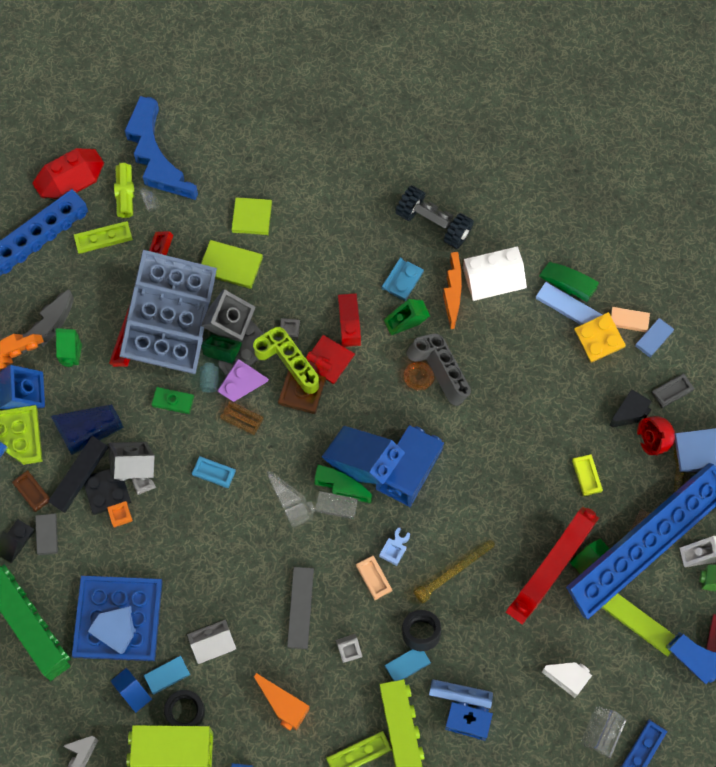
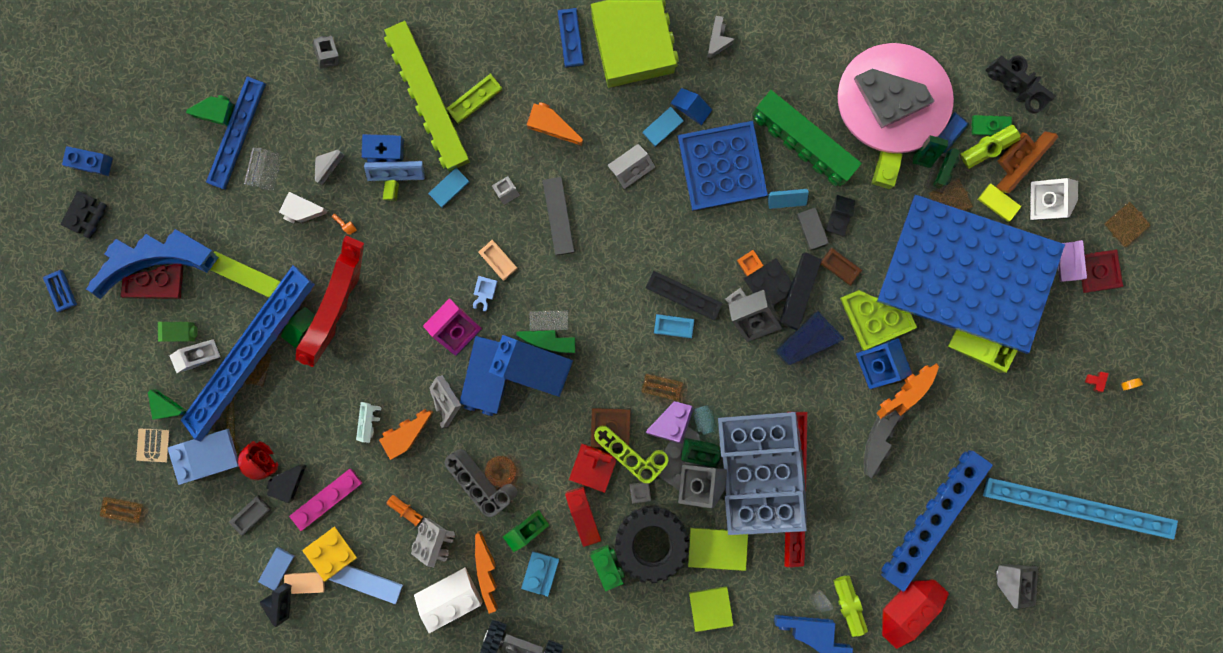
camera: 170 degrees right, 20 degrees up
(61, 570) = (788, 198): none -> dark azure slope
(68, 347) = (851, 415): green slope -> none
(103, 237) = (855, 547): lime plate -> none
(114, 628) = (720, 152): medium blue slope -> none
(172, 400) = (733, 389): green plate -> none
(184, 694) = (642, 84): black tyre -> none
(195, 498) = (684, 295): none -> black plate
(287, 256) = (659, 569): none -> black tyre
(292, 502) = (588, 310): clear slope -> none
(338, 268) = (606, 567): none -> green brick
(421, 644) = (442, 204): black tyre -> none
(424, 593) = (447, 256): clear yellow piece -> none
(436, 520) = (452, 327): none -> dark pink slope
(458, 451) = (444, 400): none -> light grey wing
(470, 675) = (391, 190): none -> lime slope
(500, 325) = (429, 541): none -> light grey plate
(508, 425) = (402, 439): none -> orange slope
(519, 361) = (404, 510): none -> orange axle
(523, 646) = (349, 228): none -> orange hand
(534, 720) = (326, 164): none -> light grey slope
(542, 449) = (365, 429): none -> light aqua plate
(570, 280) = (371, 610): green slope -> none
(587, 475) = (318, 407): neon yellow tile -> none
(595, 388) = (325, 499): none -> dark pink plate
(658, 304) = (278, 604): none -> black slope

